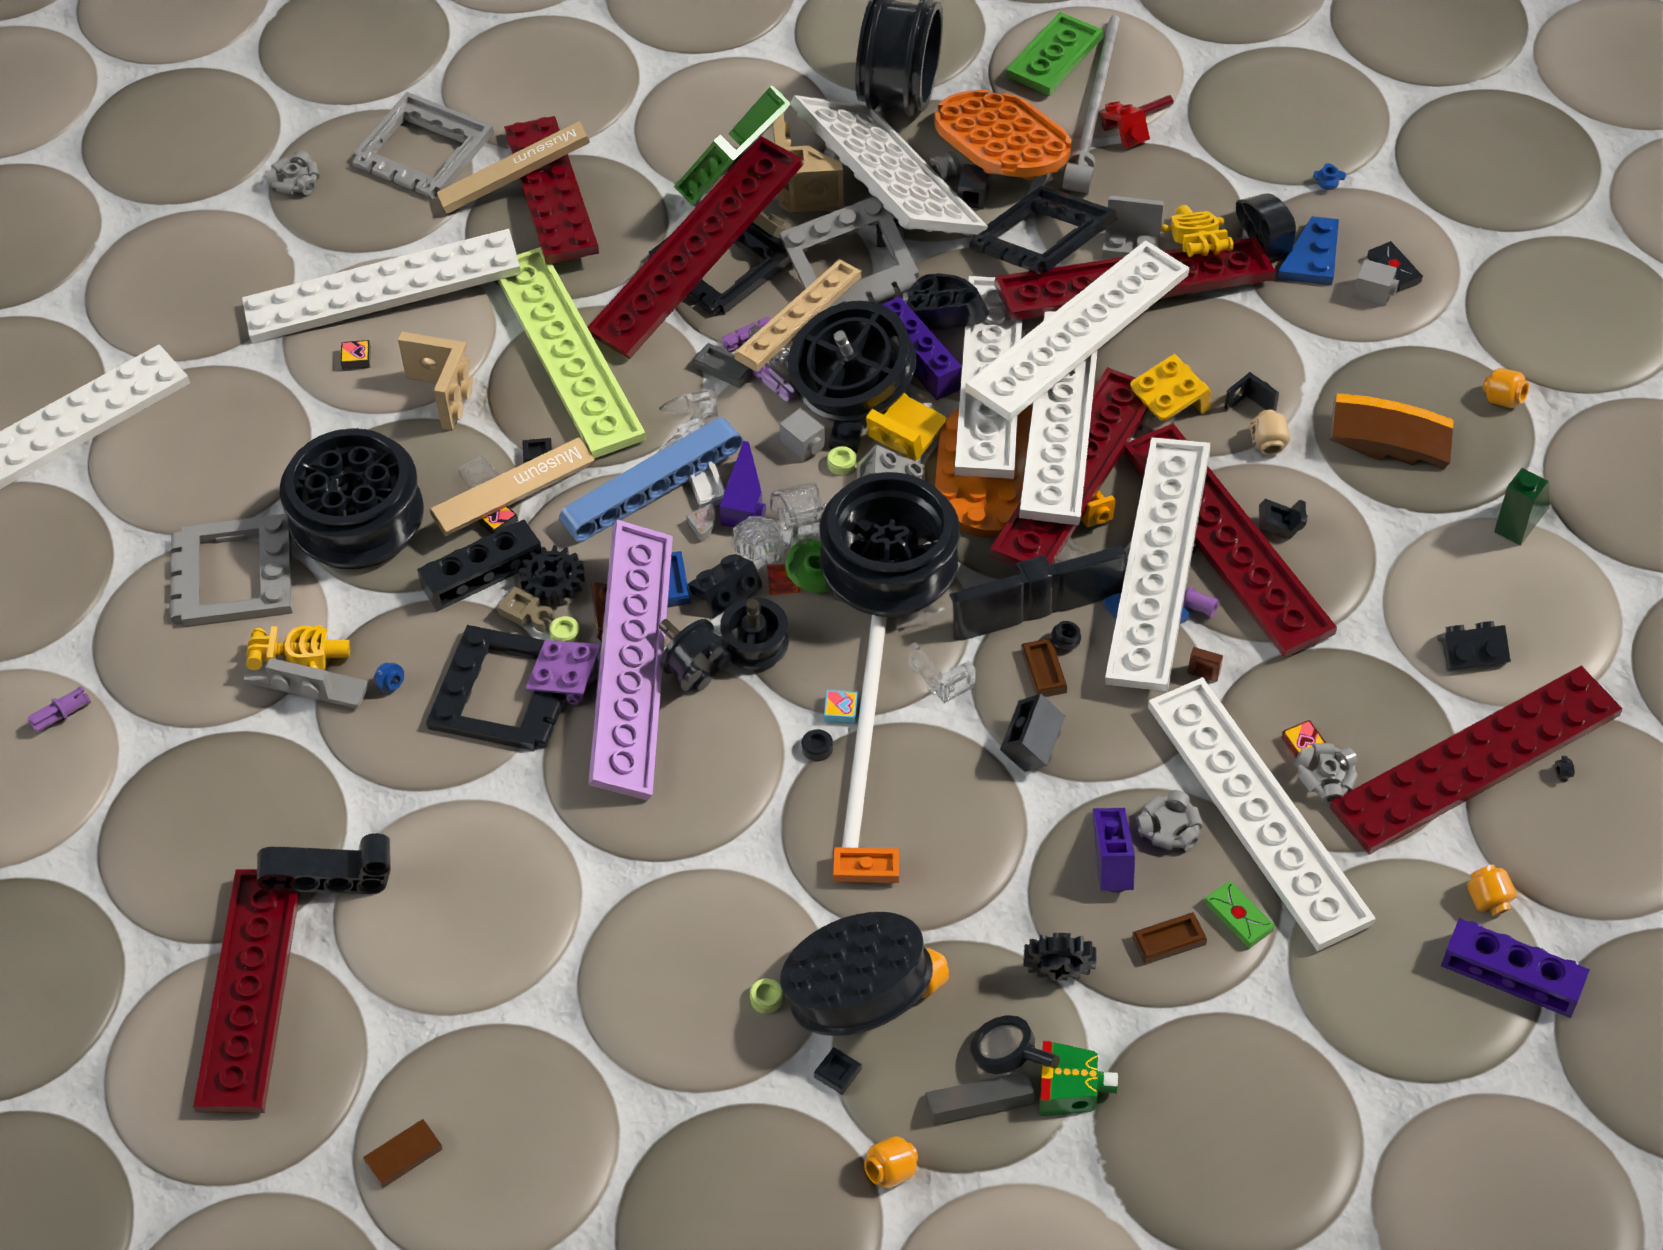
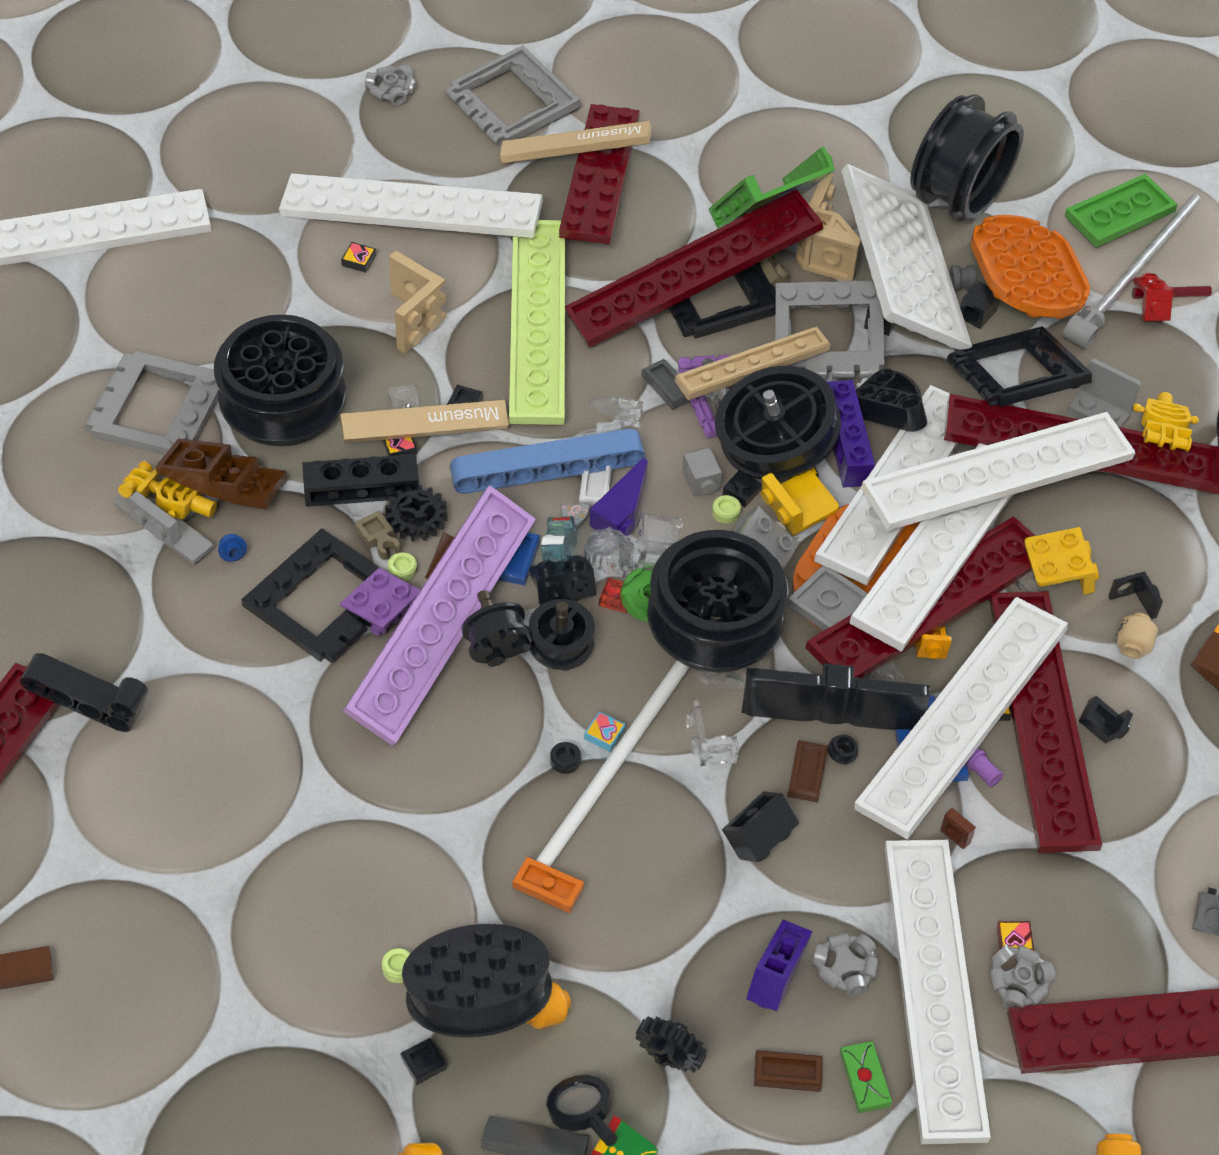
camera: 20 degrees right, 0 degrees up
(338, 612) = (219, 474): none -> reddish brown slope
(704, 545) = (559, 538): none -> clear light blue leg
(986, 504) = (826, 598): none -> light grey plate

